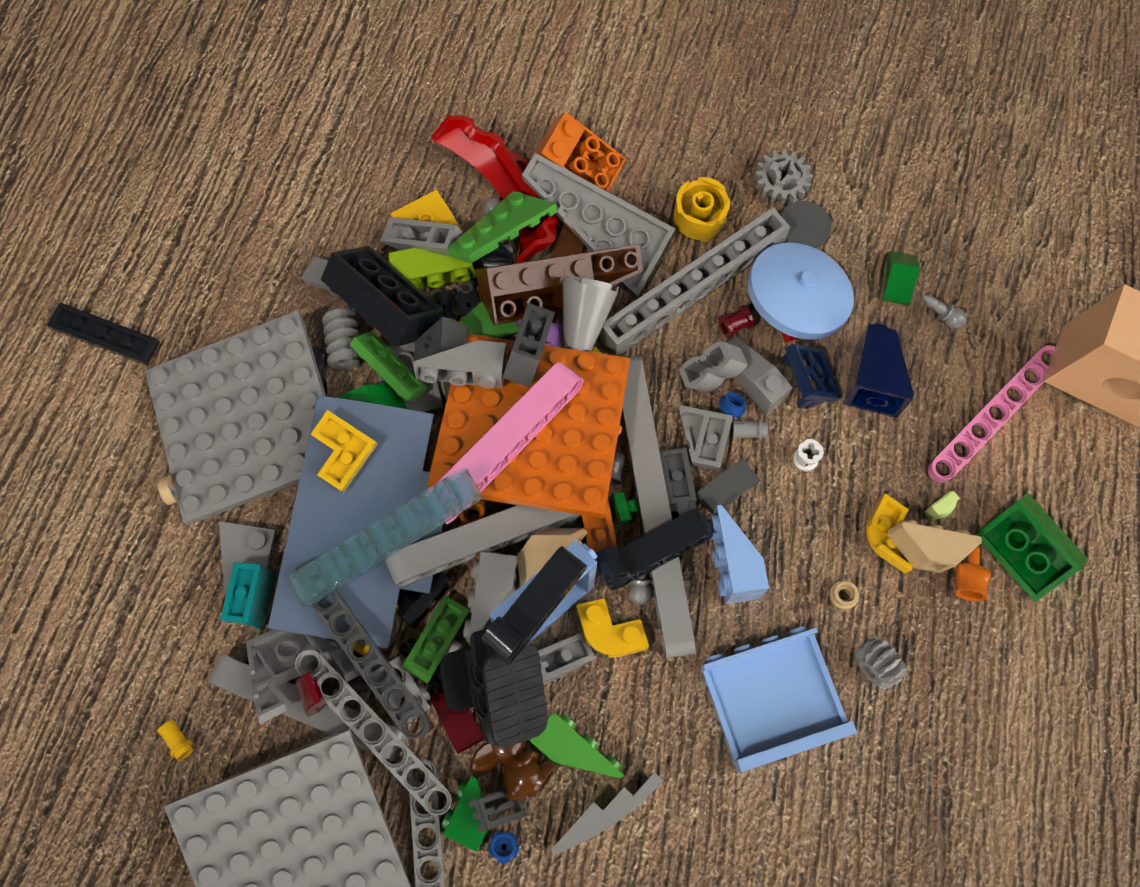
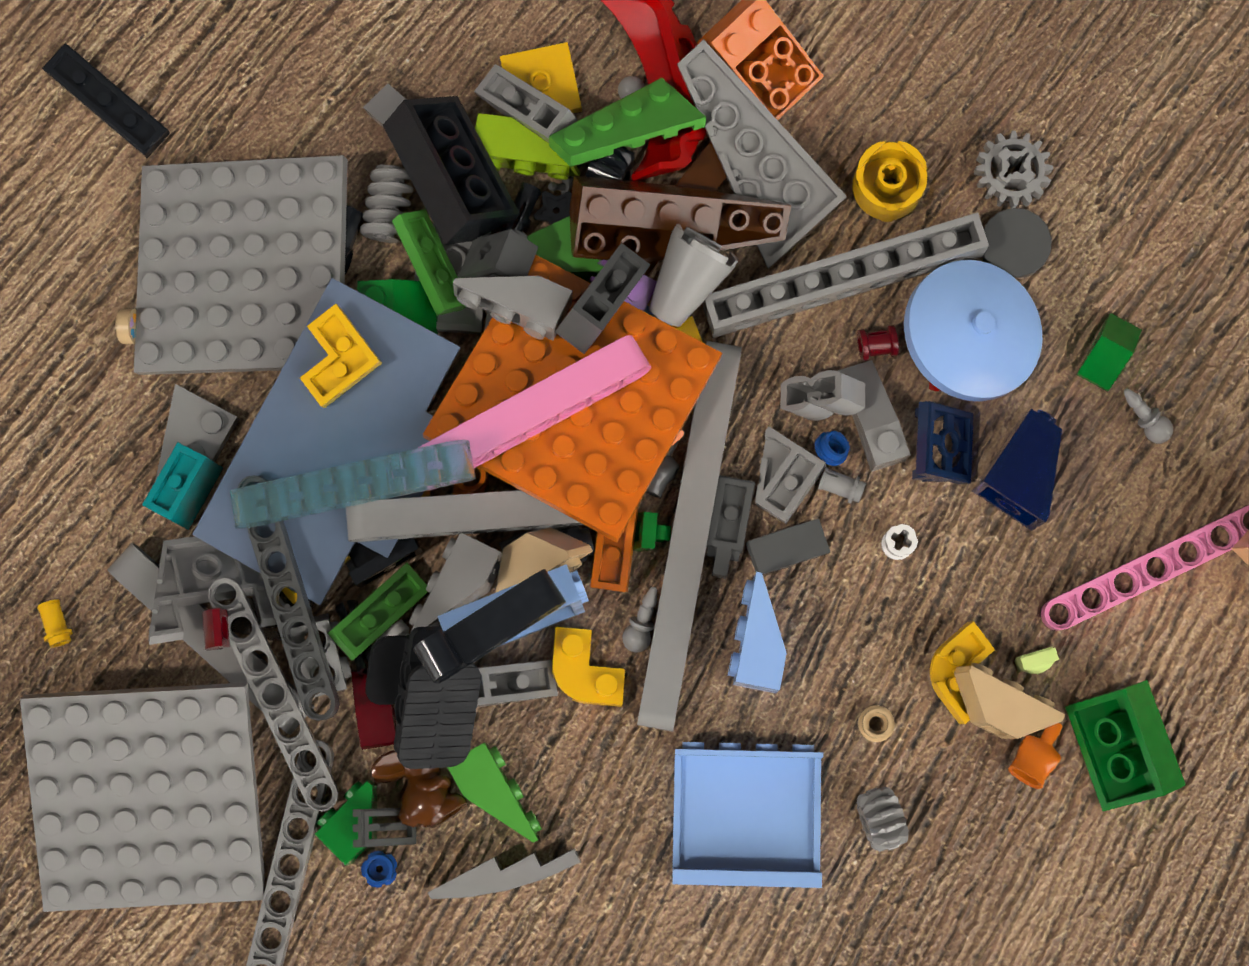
camera: 25 degrees right, 10 degrees up
(652, 550) = (695, 592): black beam -> none

